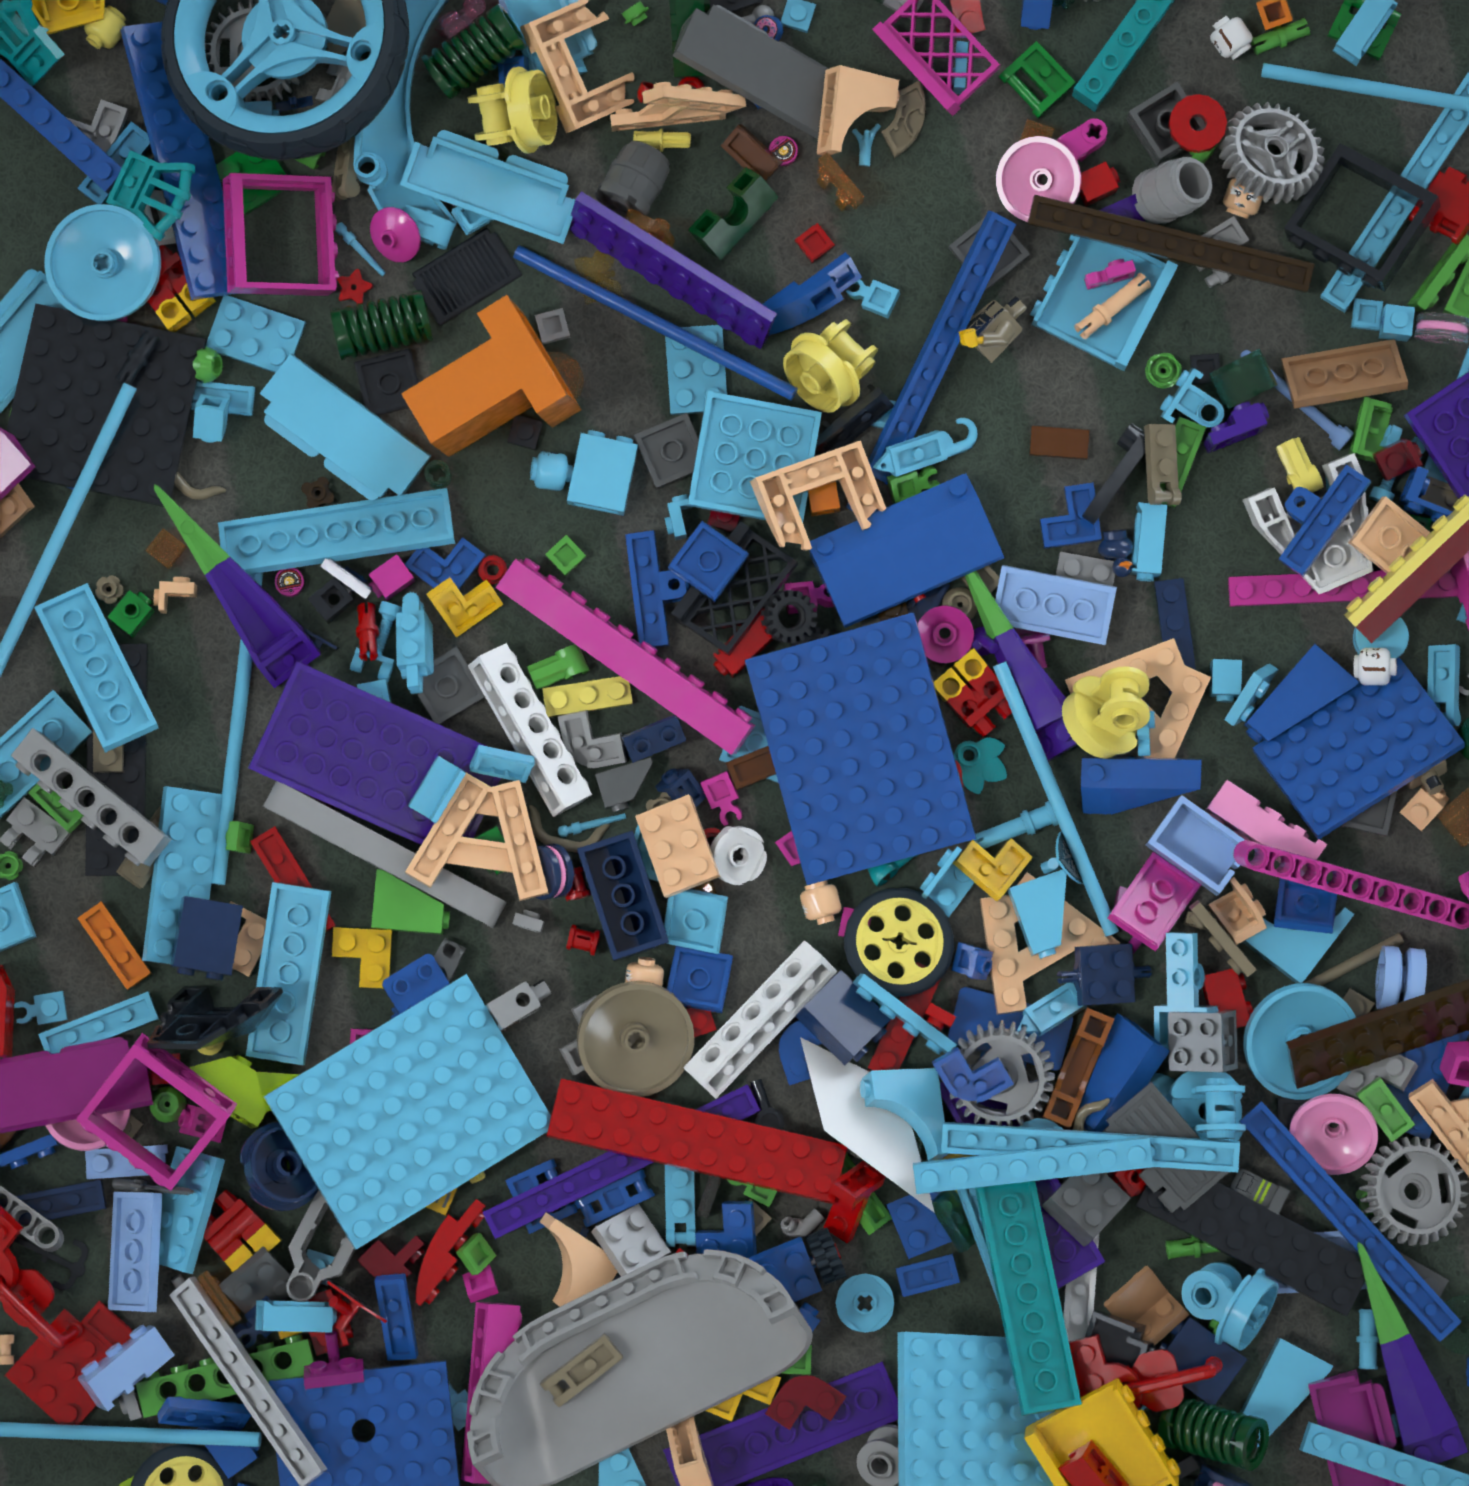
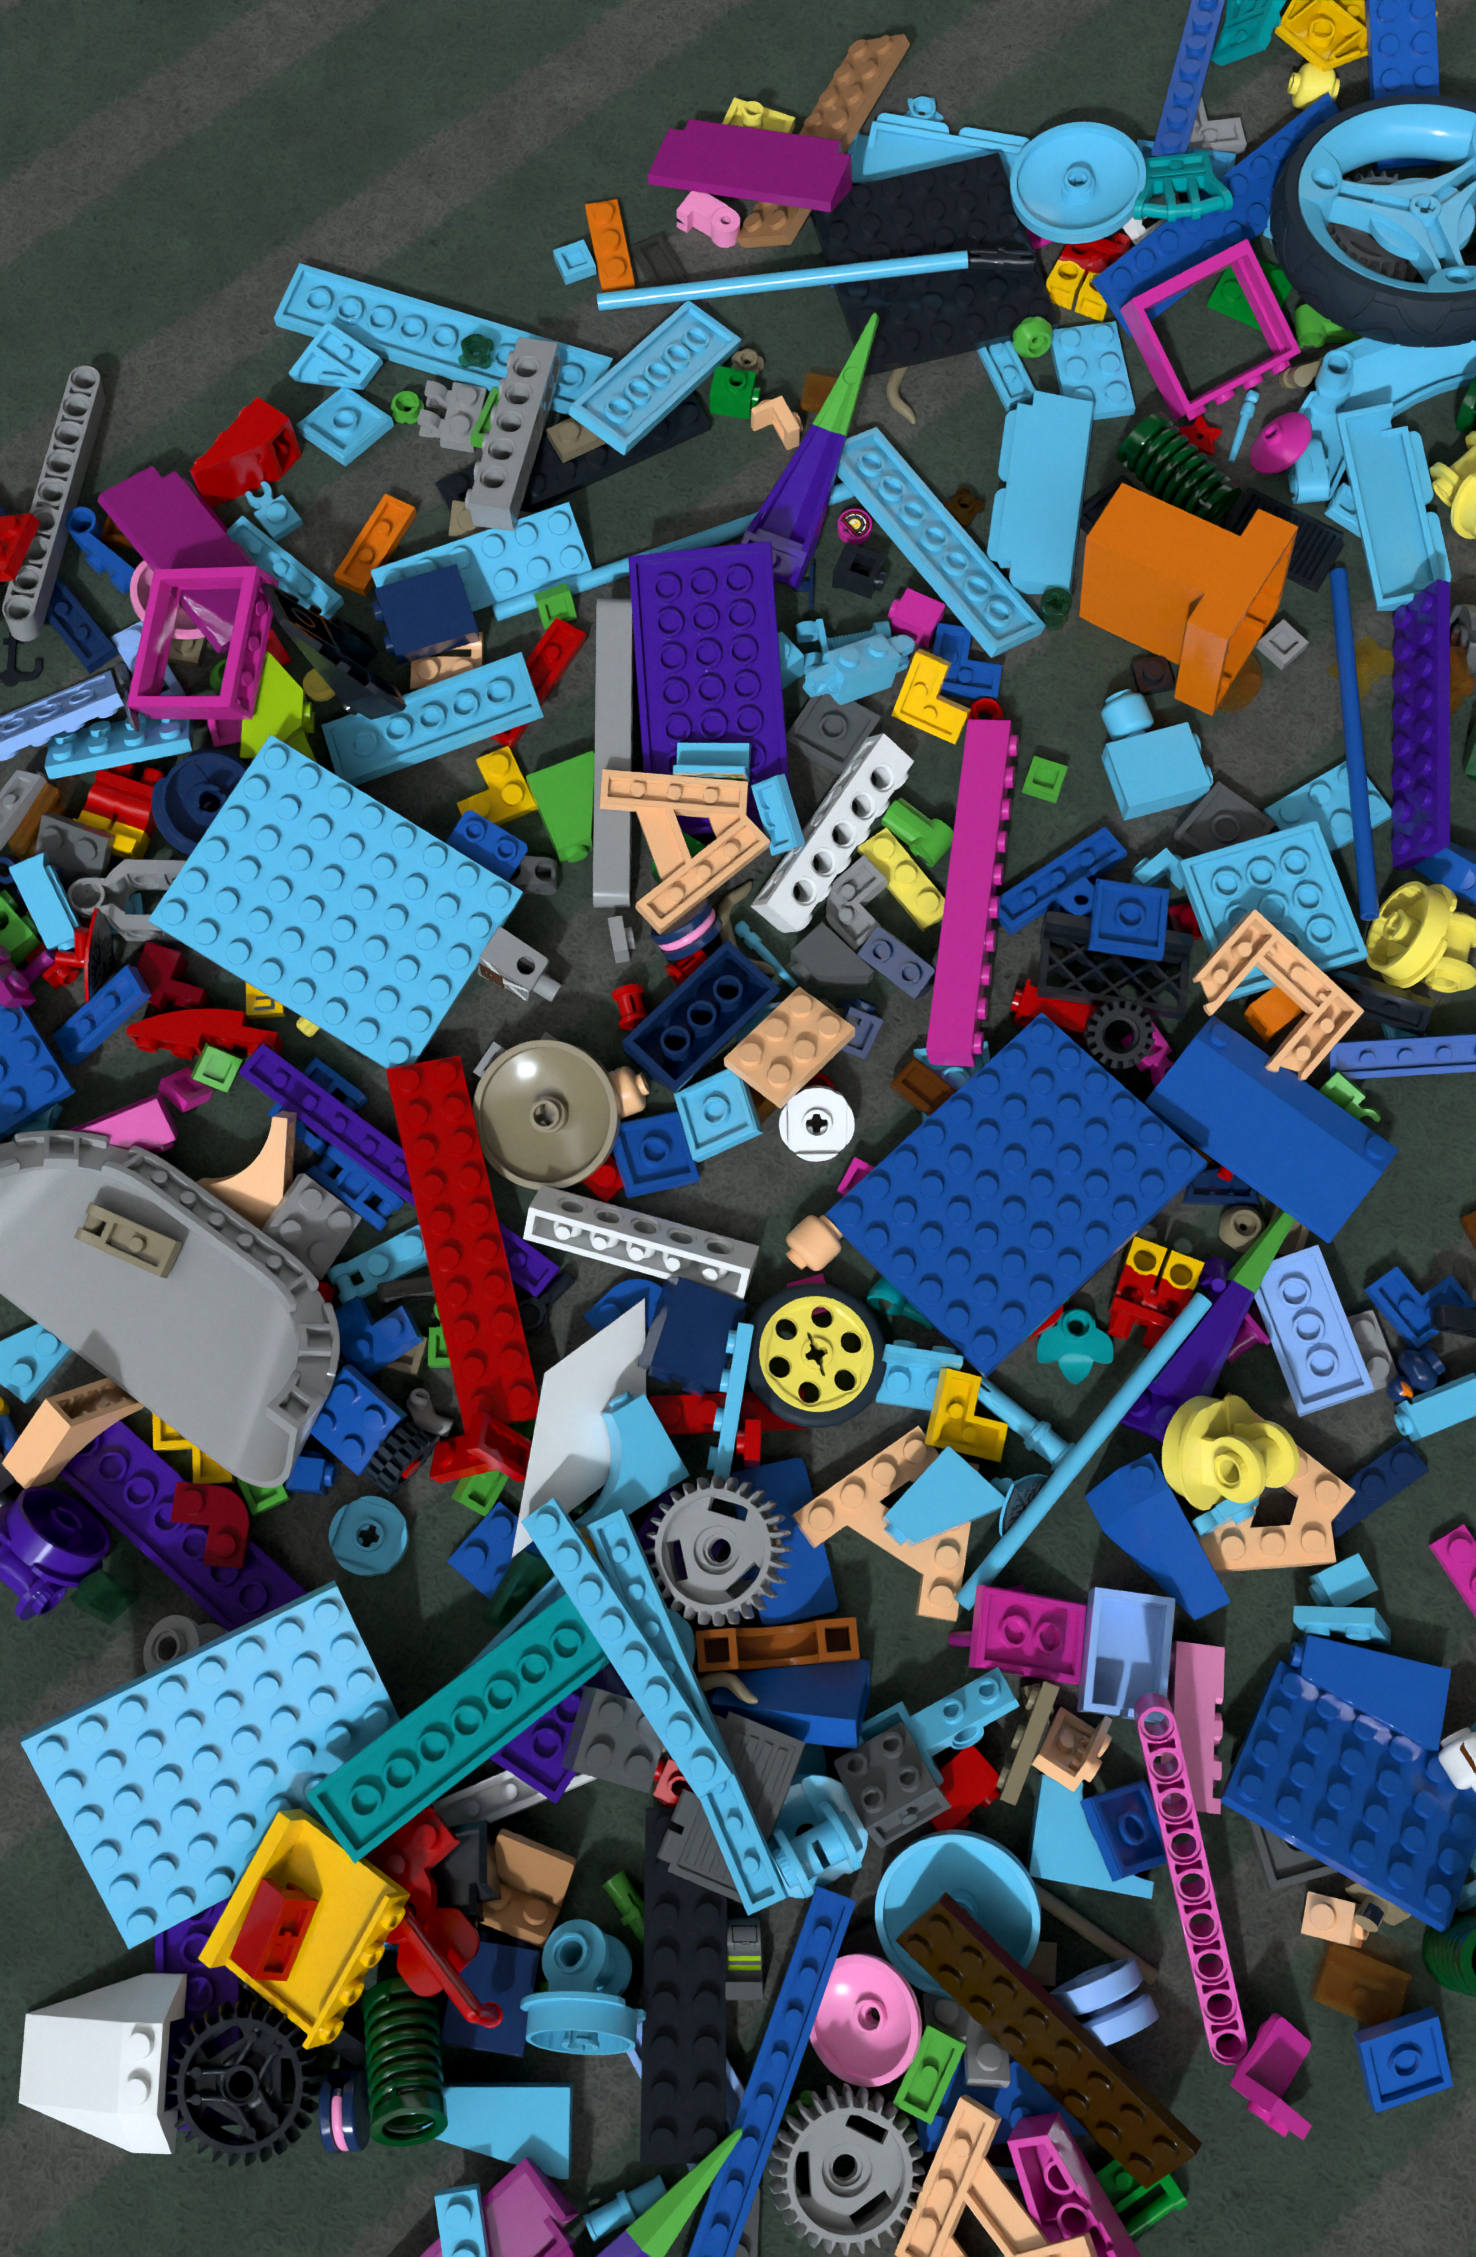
camera: 65 degrees right, 10 degrees down
(210, 418) = (980, 365): medium azure brick -> none
(348, 577) = (892, 578): tile -> none
(367, 632) = (845, 620): red pin -> none
(721, 792) = (875, 1071): dark pink plate -> none
(925, 450) = (1395, 1096): medium azure plate -> none
(927, 1275) = (437, 1594): blue plate -> none
(950, 648) = (1196, 1206): dark pink dish -> none
(970, 1084) = (684, 1514): blue plate -> none
(972, 961) = (838, 1453): blue bracket -> none
(1051, 1010) = (846, 1588): medium azure plate -> none
(1104, 974) = (907, 1619): dark blue plate -> none

